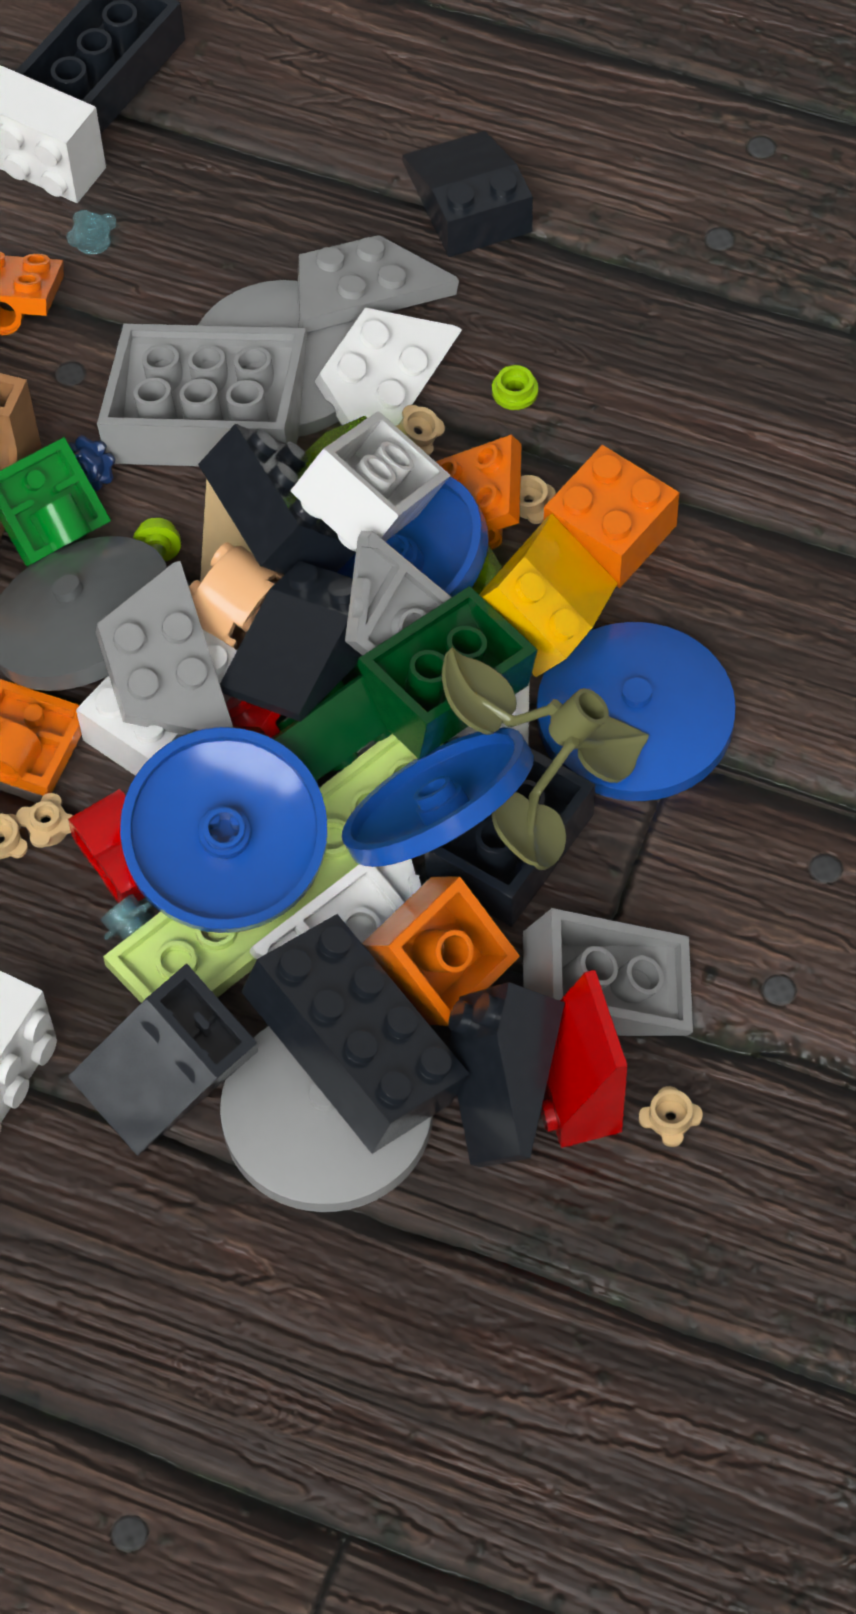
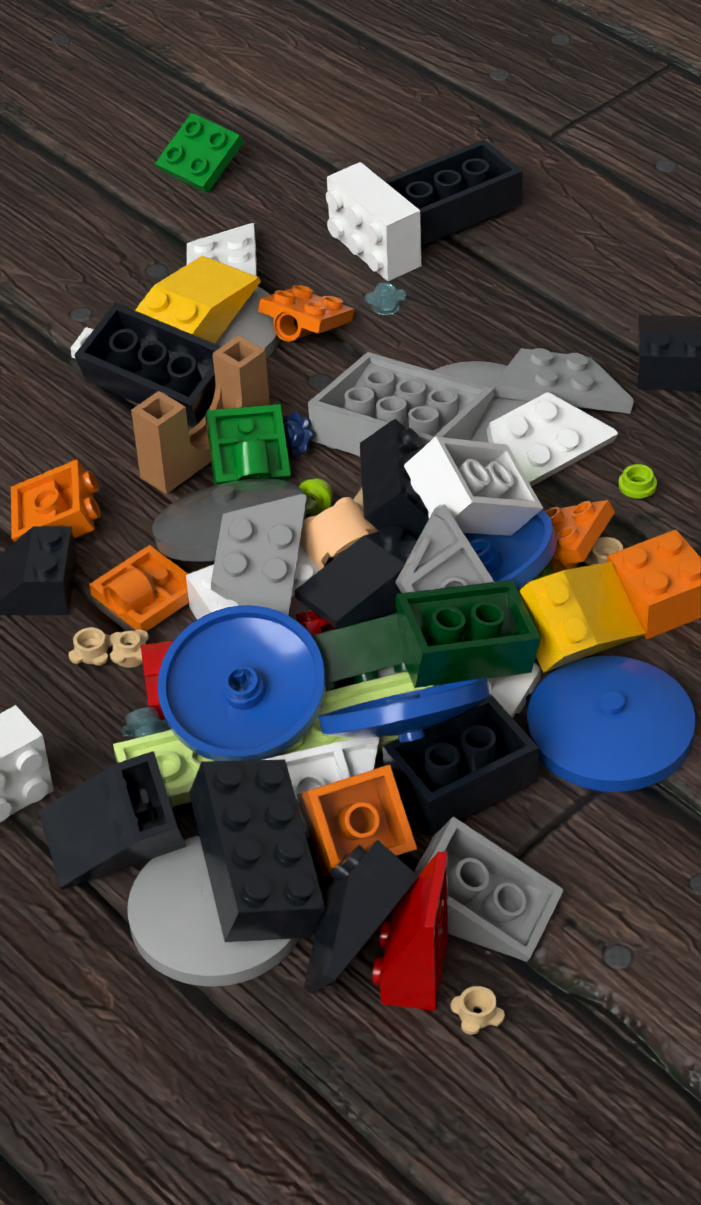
camera: 25 degrees right, 15 degrees down
(425, 421) = (555, 480): tan plate -> none
(583, 723) = (559, 725): olive plant -> none

